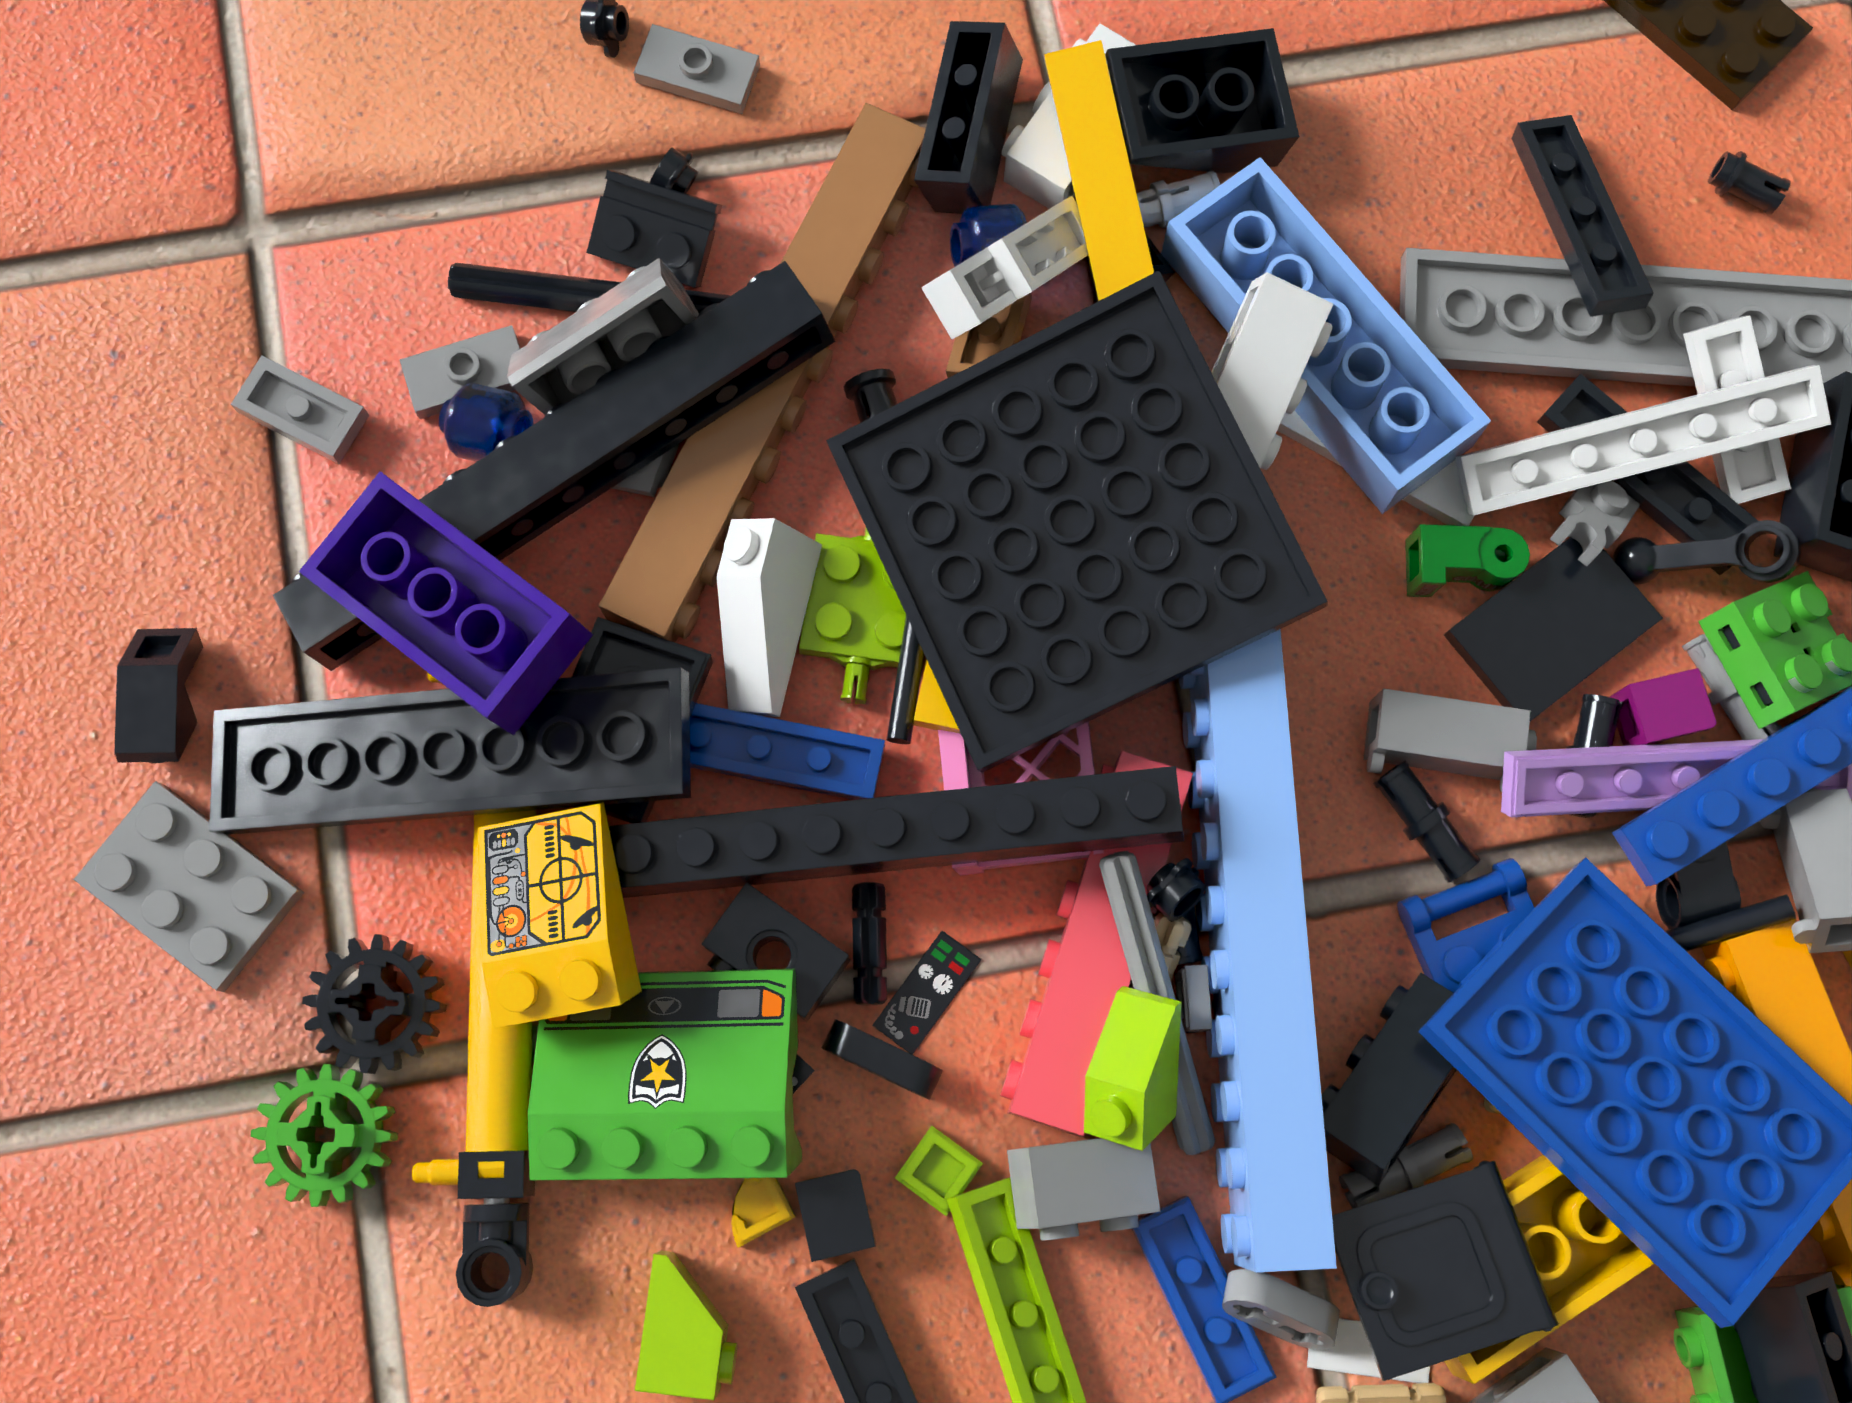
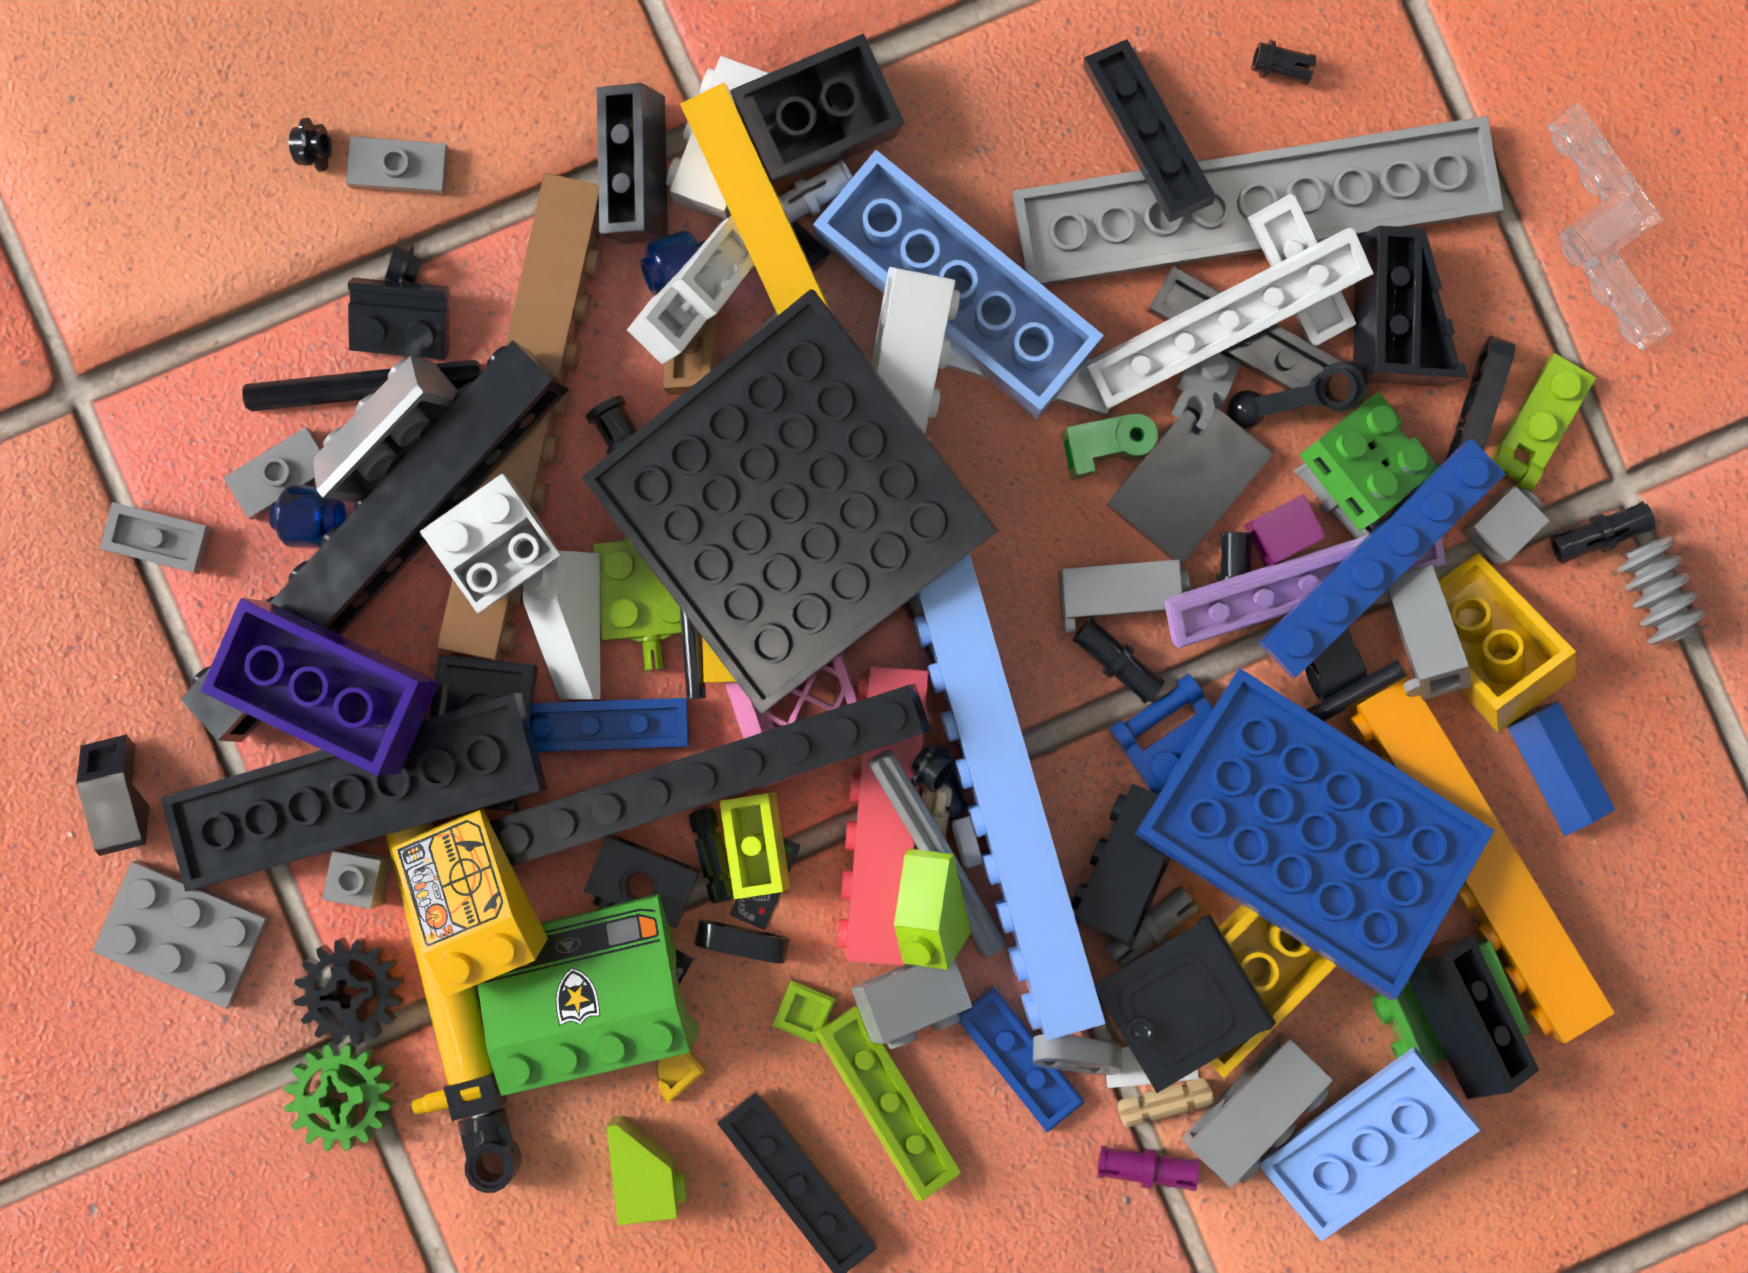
camera: 15 degrees left, 10 degrees up
(424, 864) = (357, 878): none -> light grey brick
(698, 486) = (491, 543): none -> white slope
(835, 1215) = (734, 1065): black panel -> none
(928, 937) = (755, 845): none -> neon yellow brick

